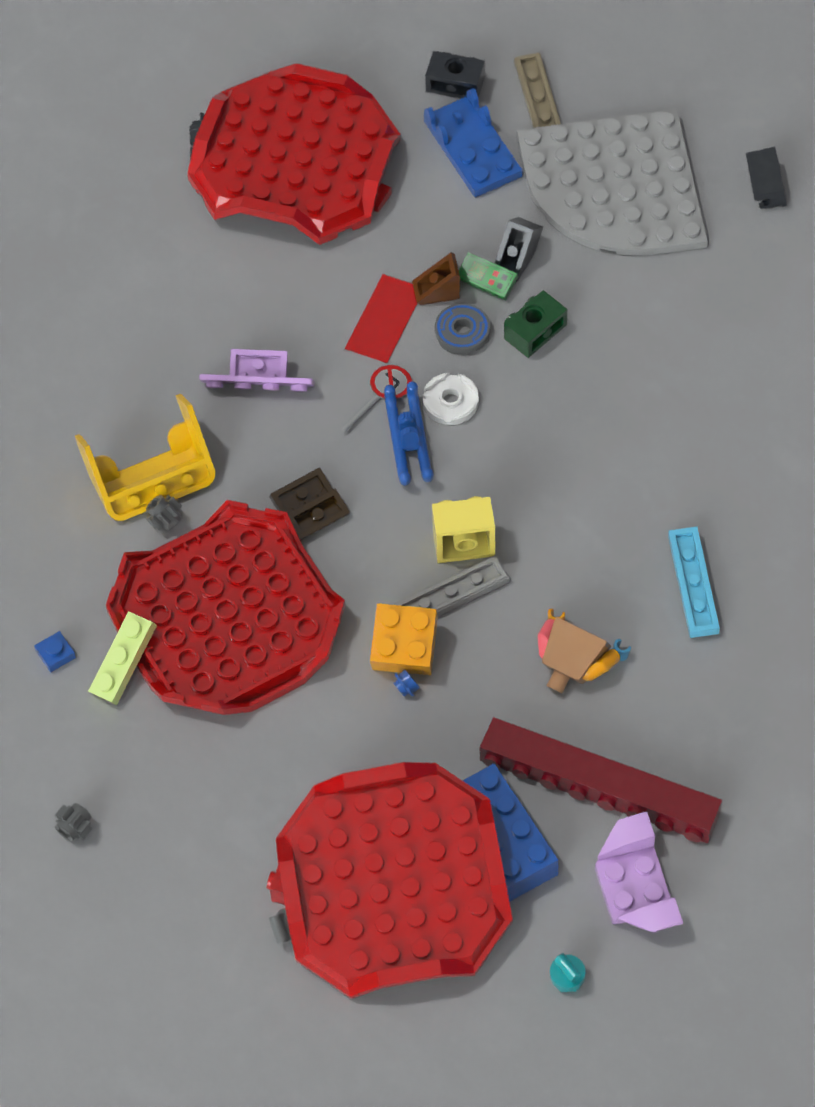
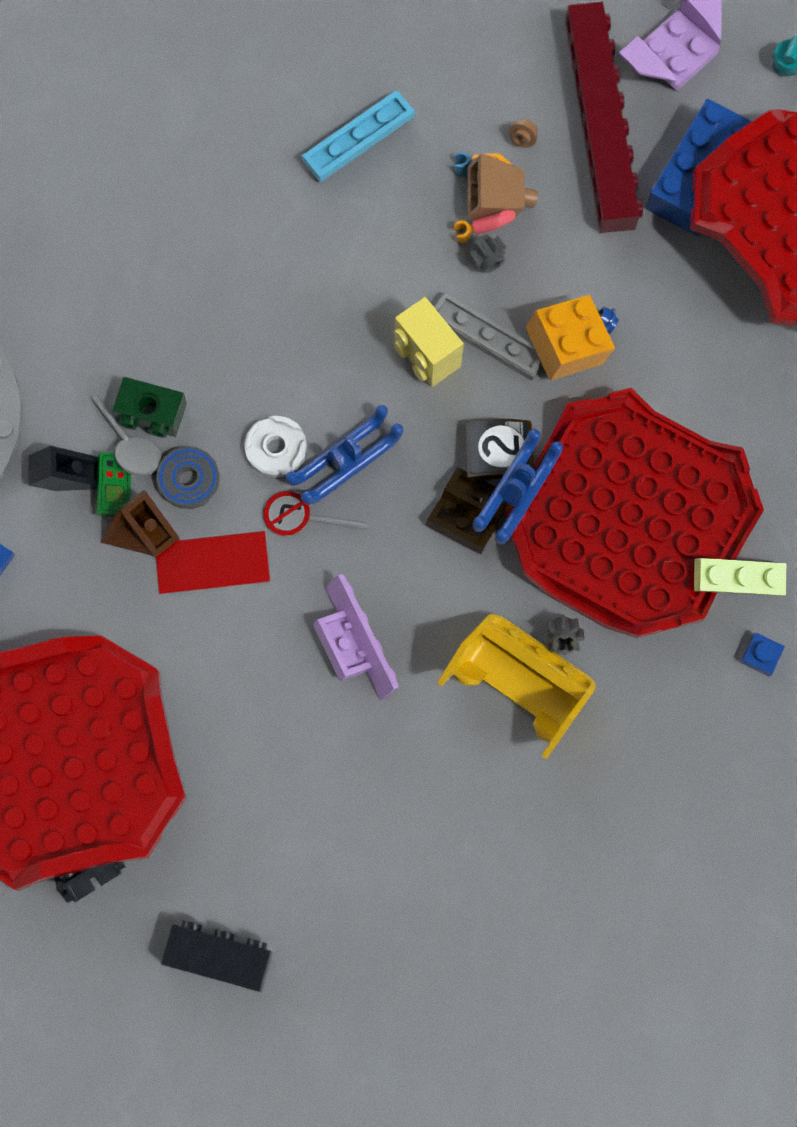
camera: 125 degrees left, 15 degrees up
(89, 189) = (217, 956): none -> black brick
(292, 519) = (518, 487): none -> blue piece
(342, 545) = (493, 446): none -> slope
(503, 298) = (132, 454): none -> light grey piece
(521, 621) = (487, 253): none -> dark grey gear
(620, 709) = (523, 133): none -> medium nougat plate

